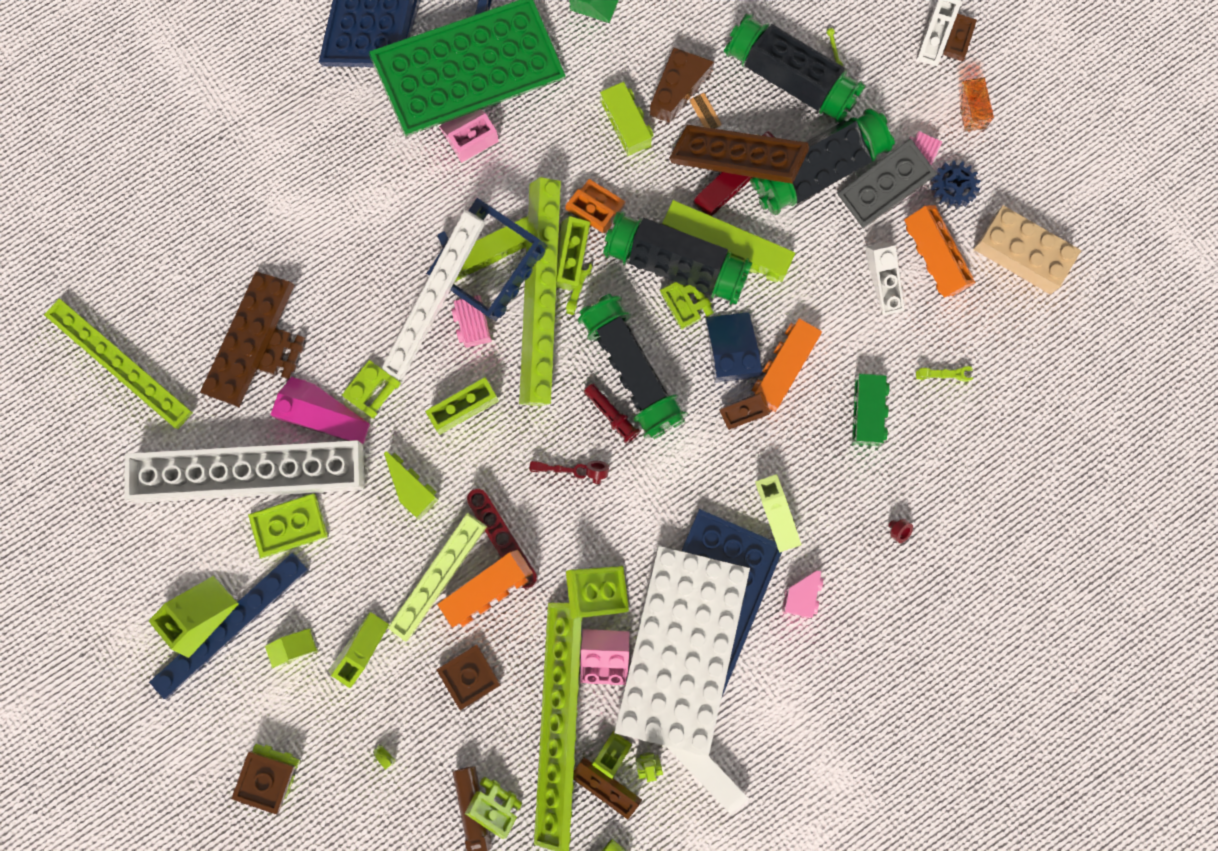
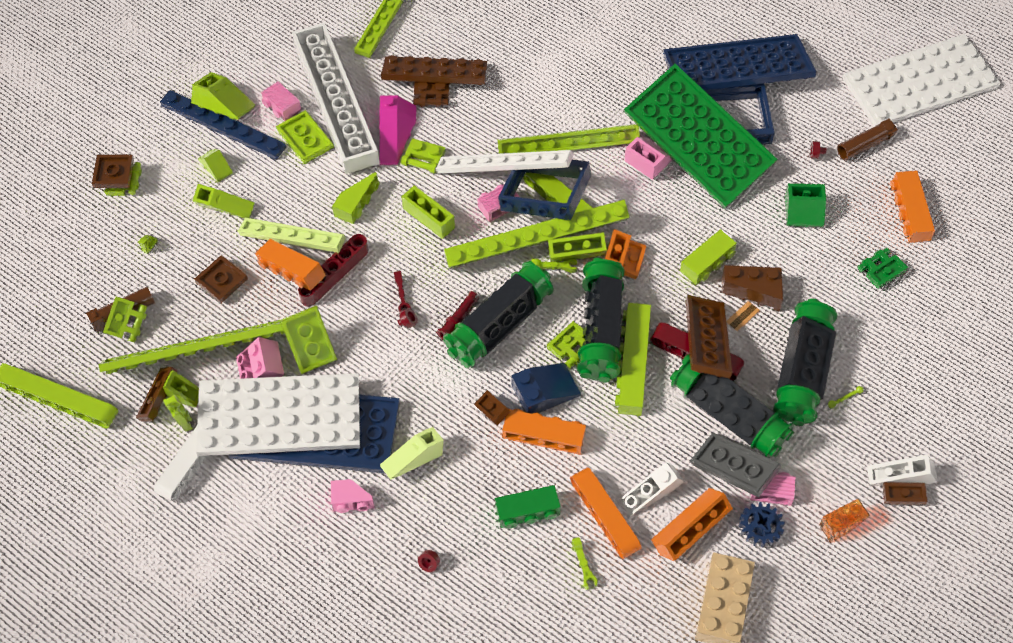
camera: 75 degrees right, 20 degrees down
(223, 542) = (281, 101): none -> bright pink brick
(413, 216) = (570, 140): none -> lime plate
(897, 333) = (605, 513): none -> orange beam

